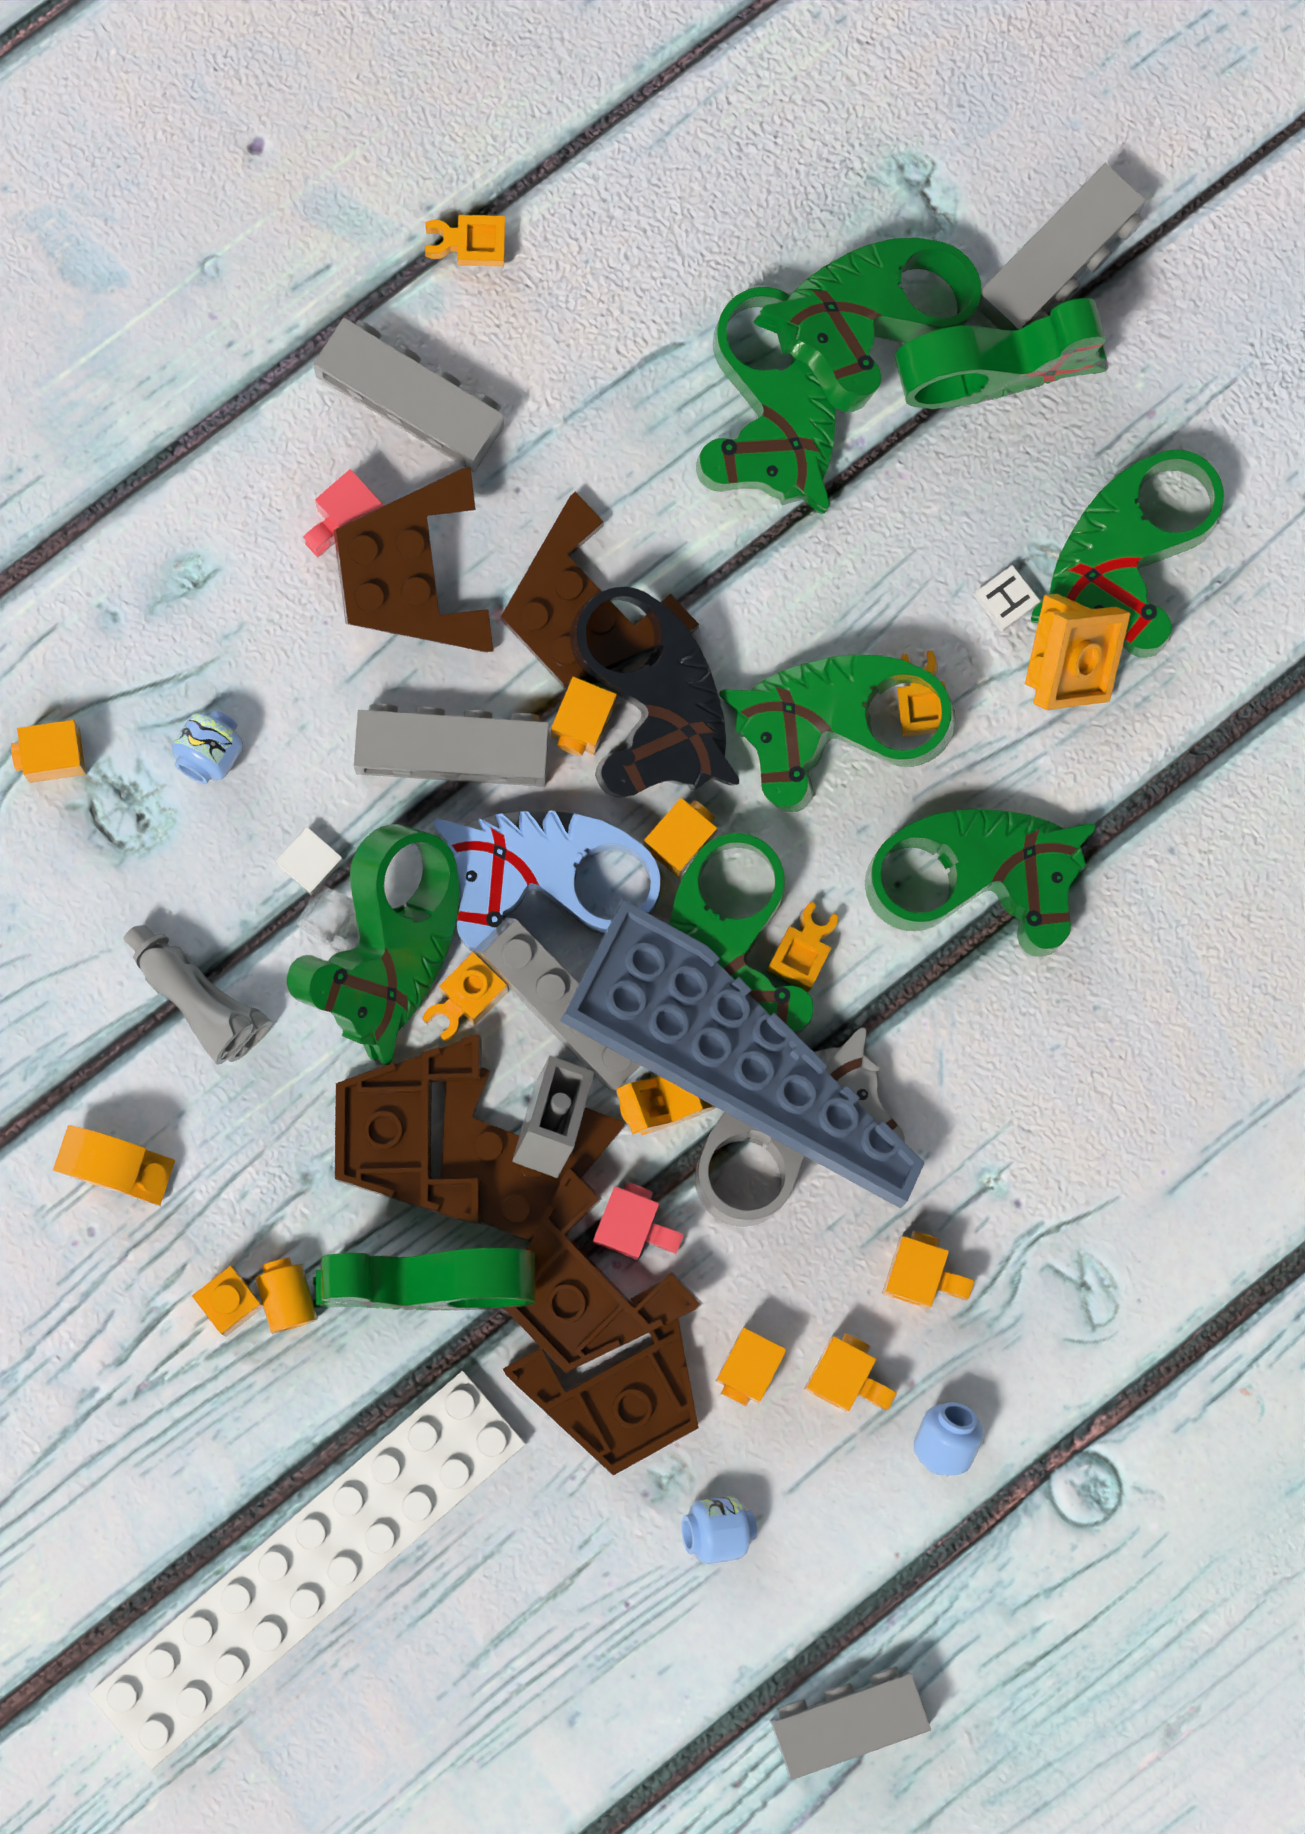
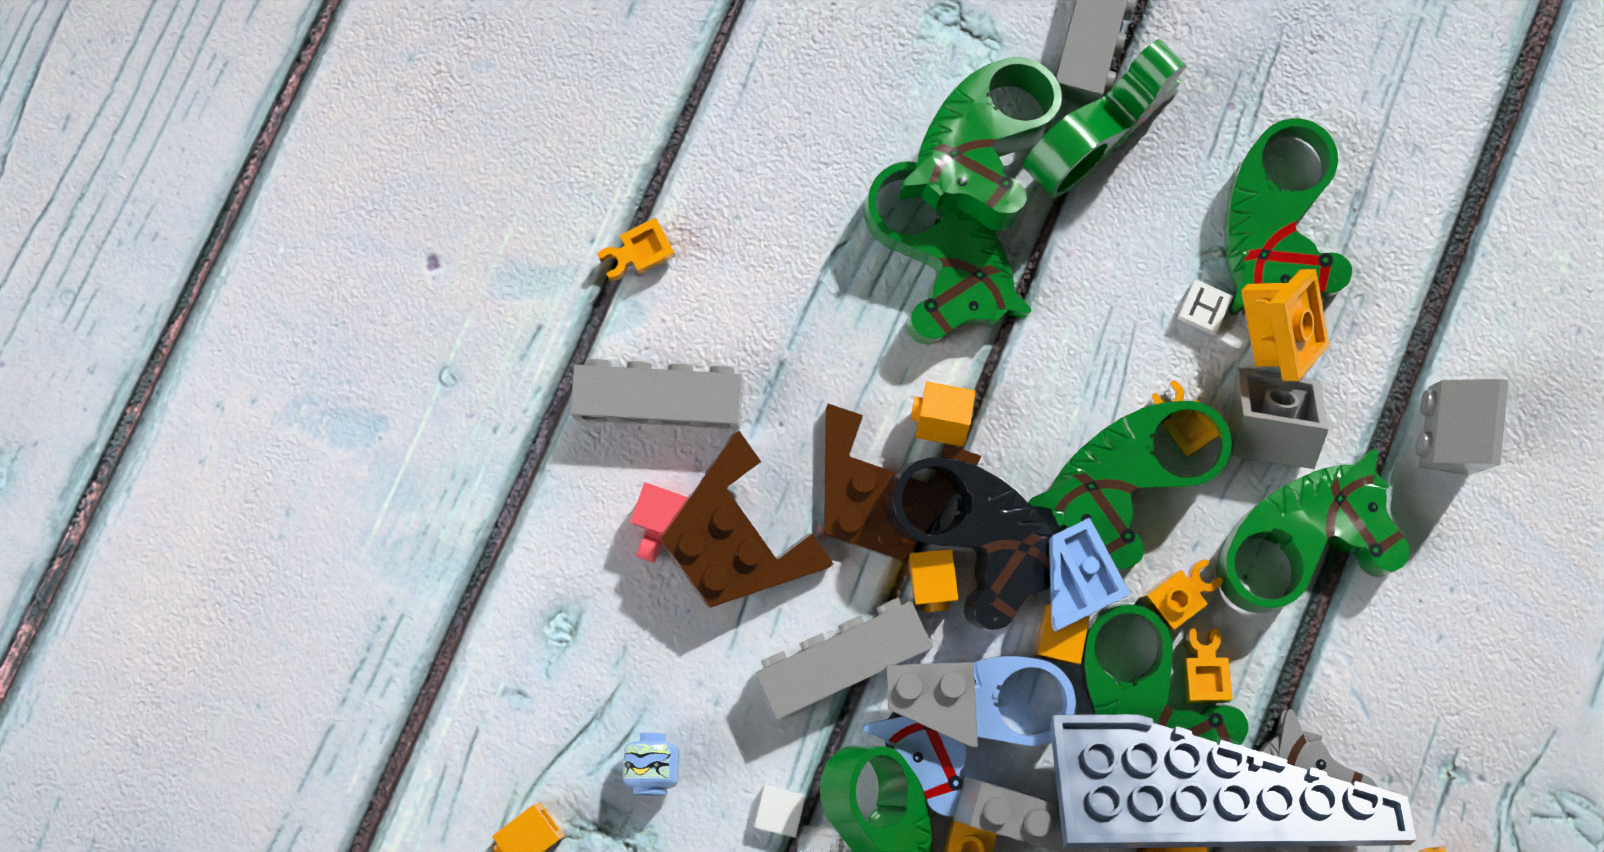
camera: 15 degrees left, 0 degrees up
(520, 825) = (936, 697): none -> light grey wing
(683, 561) = (943, 413): none -> light orange brick
(728, 786) = (1081, 575): none -> light blue wing
(812, 863) = (1179, 596): none -> light orange brick
(1012, 743) = (1277, 419): none -> light grey slope
(1189, 845) = (1462, 425): none -> light grey slope

